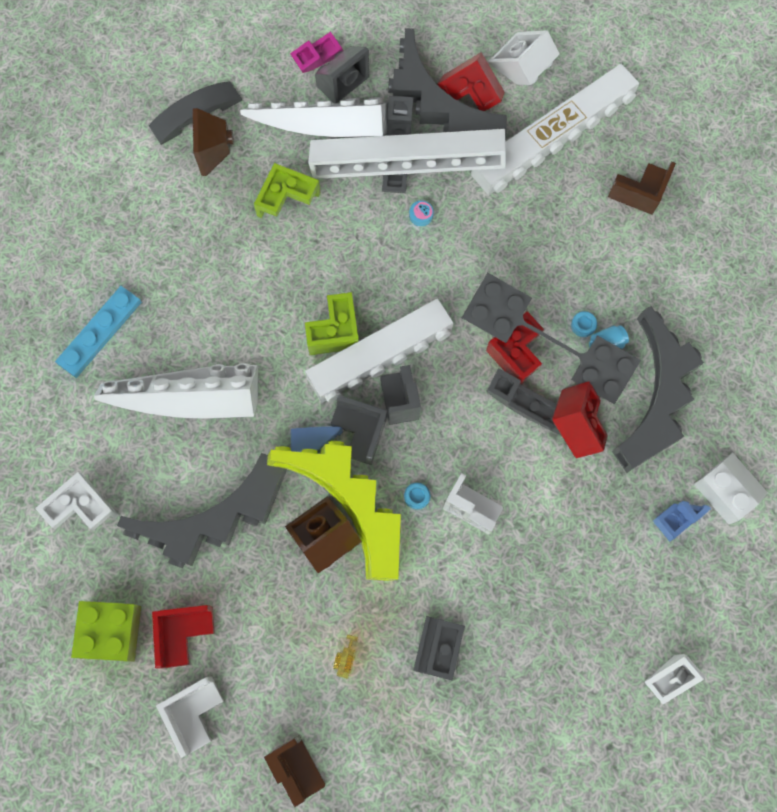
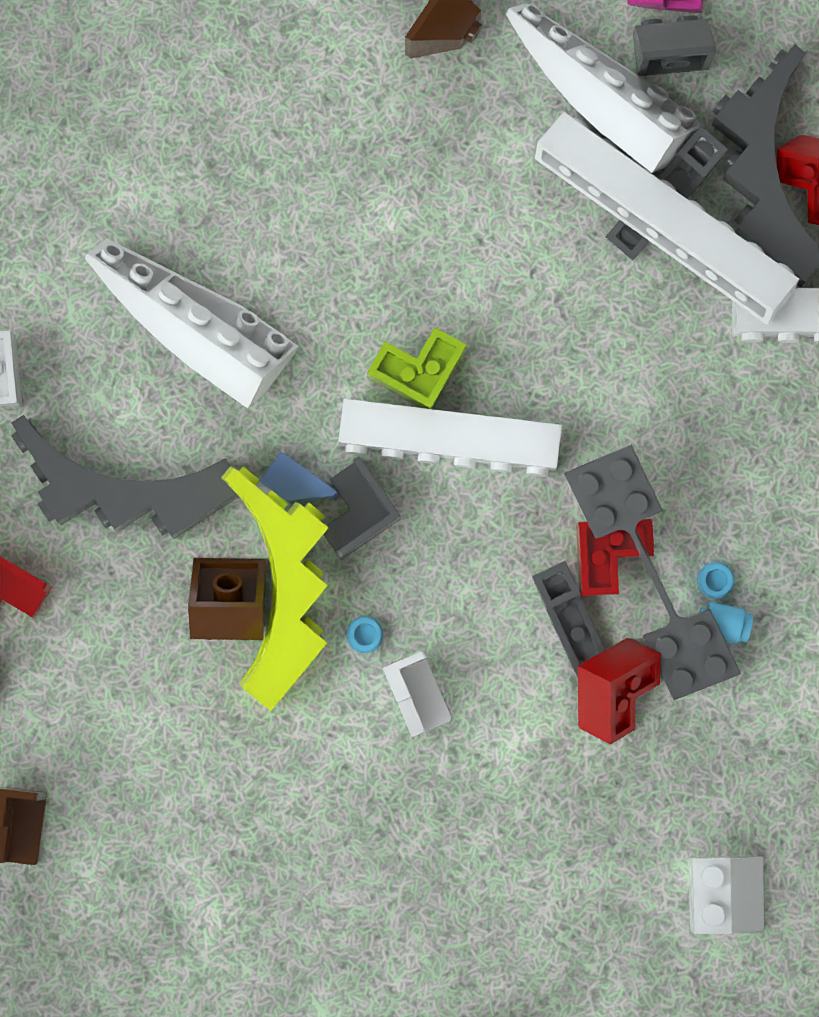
camera: 40 degrees right, 10 degrees up
(98, 331) = (146, 169): medium azure plate -> none
(282, 184) = (487, 145): lime panel -> none
(345, 660) = (150, 753): clear yellow plate -> none
(401, 396) = (432, 506): dark grey panel -> none
(421, 213) = (631, 299): tile -> none
(439, 648) = (260, 816): dark grey plate -> none
(669, 395) = (776, 706): dark grey arch -> none
(679, 518) = (638, 881): medium blue slope -> none

